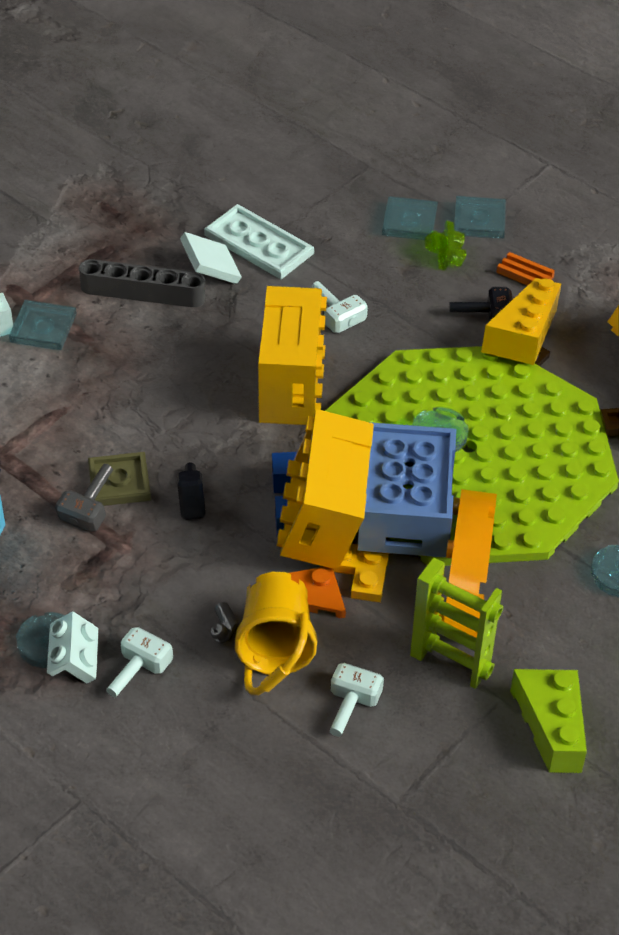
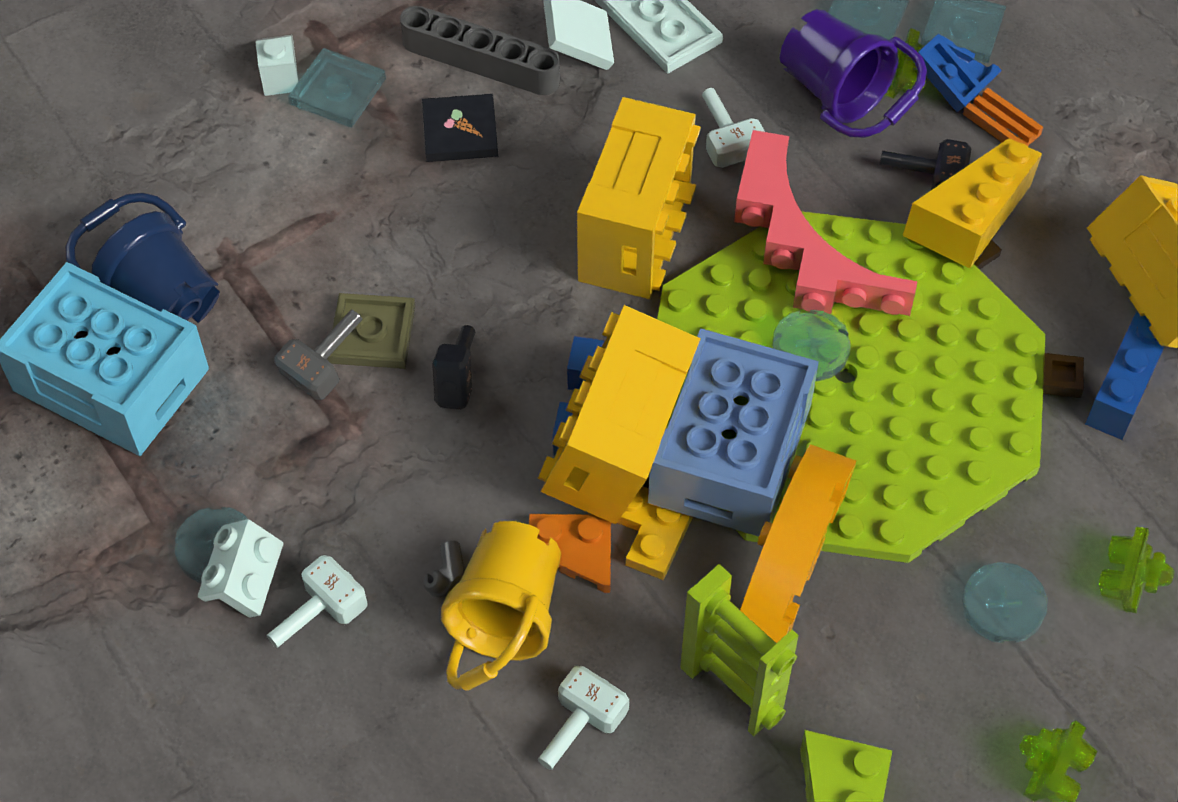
camera: 15 degrees right, 10 degrees up
(142, 336) = (459, 127): none -> black tile
(410, 368) = (793, 244): none -> coral arch
(412, 253) = (848, 71): none -> dark purple piece
(483, 244) = (955, 71): none -> blue wing

